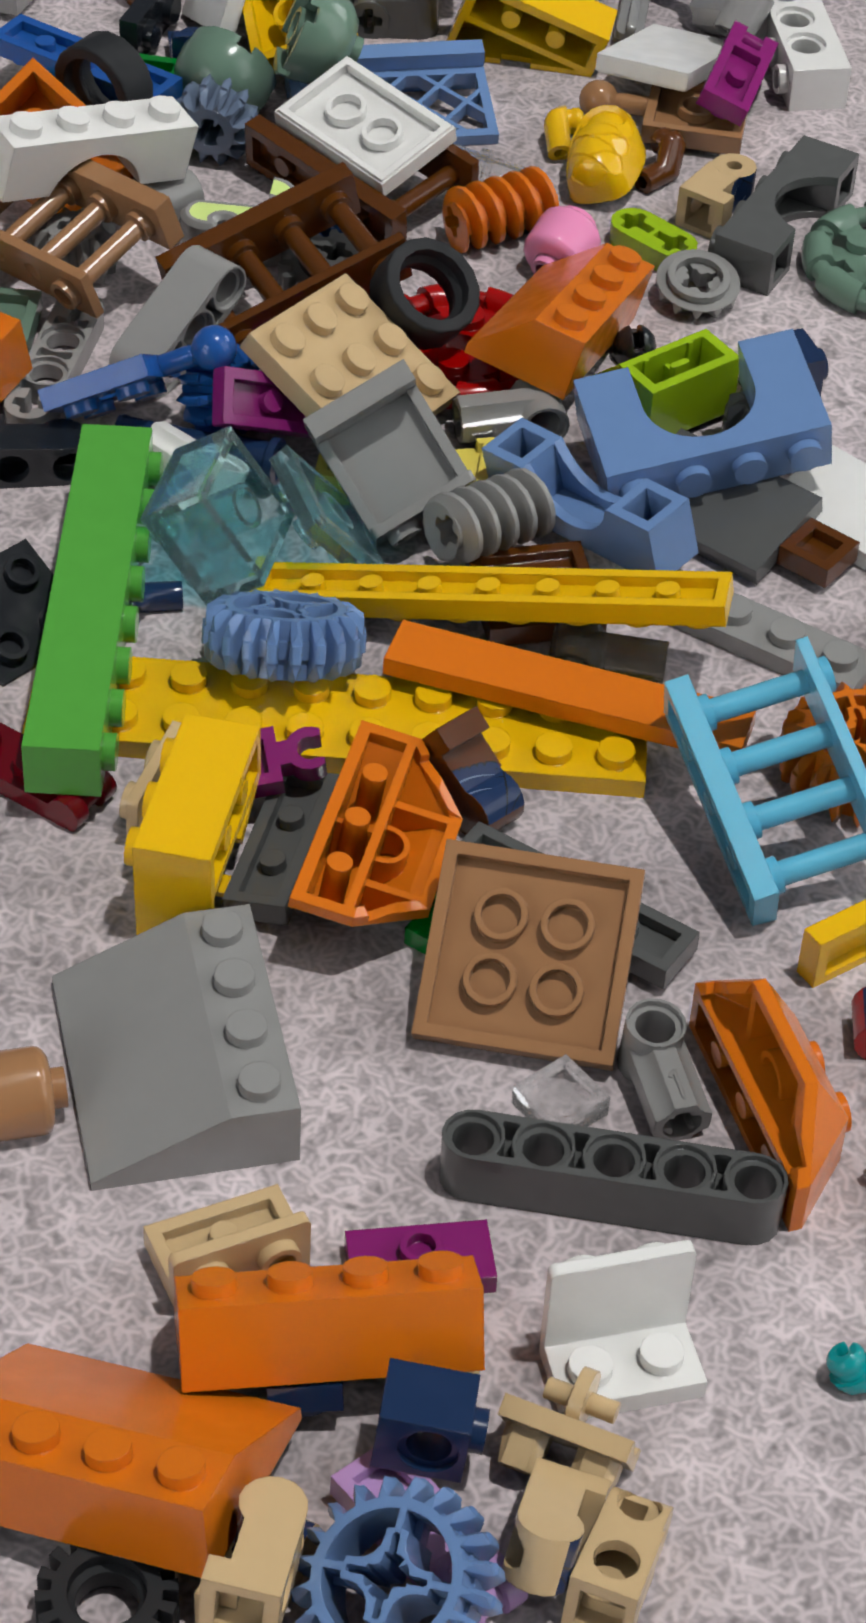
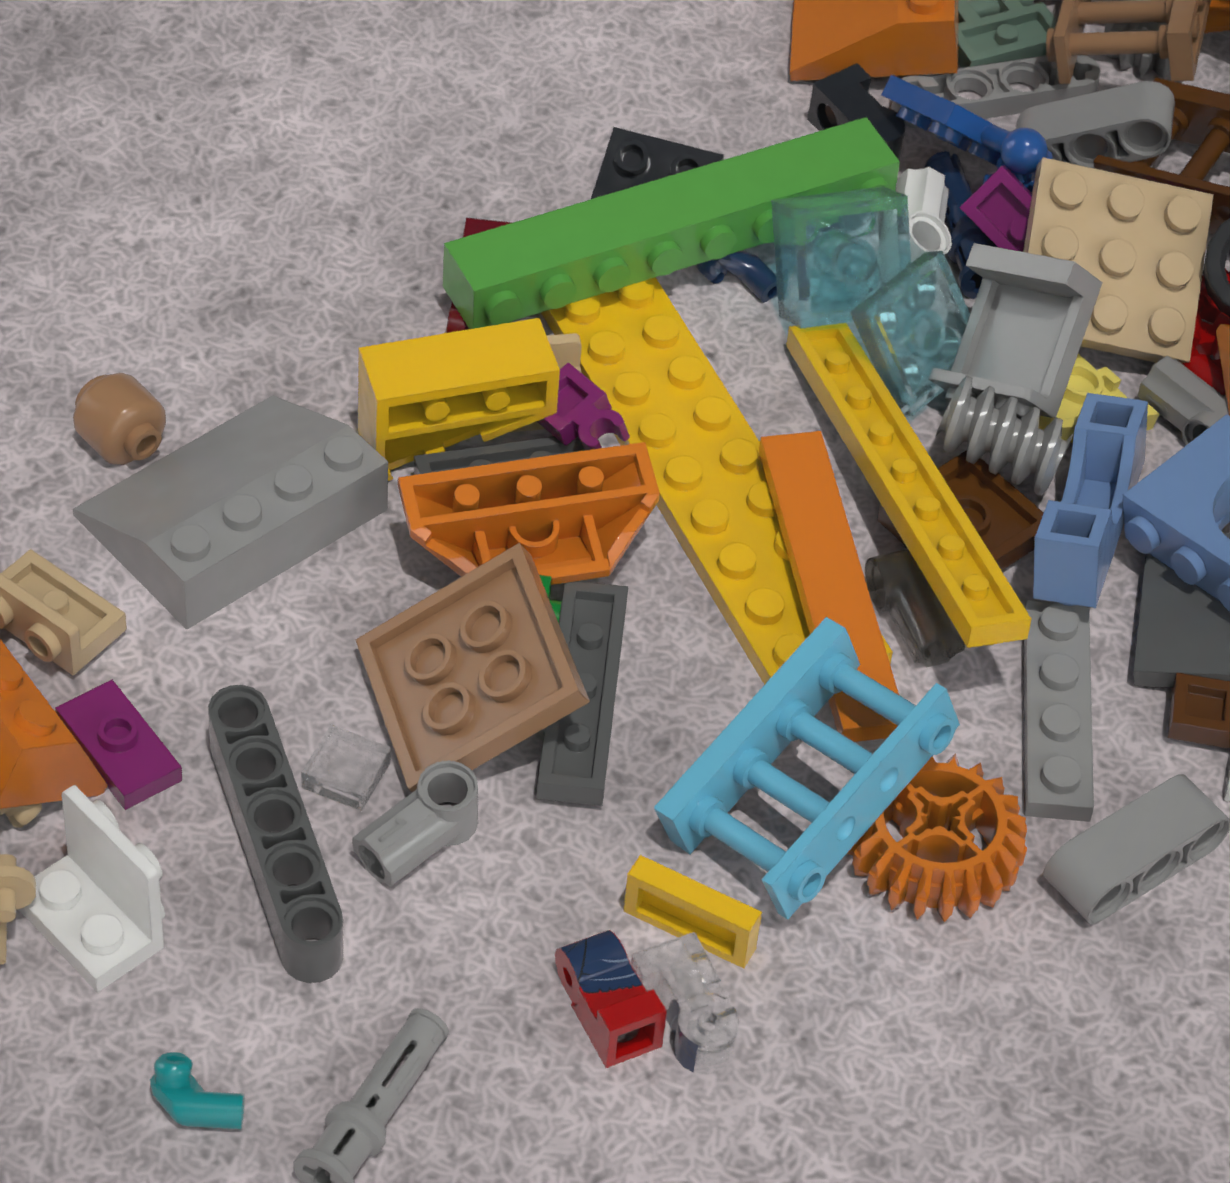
camera: 60 degrees right, 5 degrees up
(284, 635) = (737, 362): medium blue gear -> none
(474, 773) = (670, 555): reddish brown leg -> none
(772, 1084) = (435, 918): orange wedge -> none

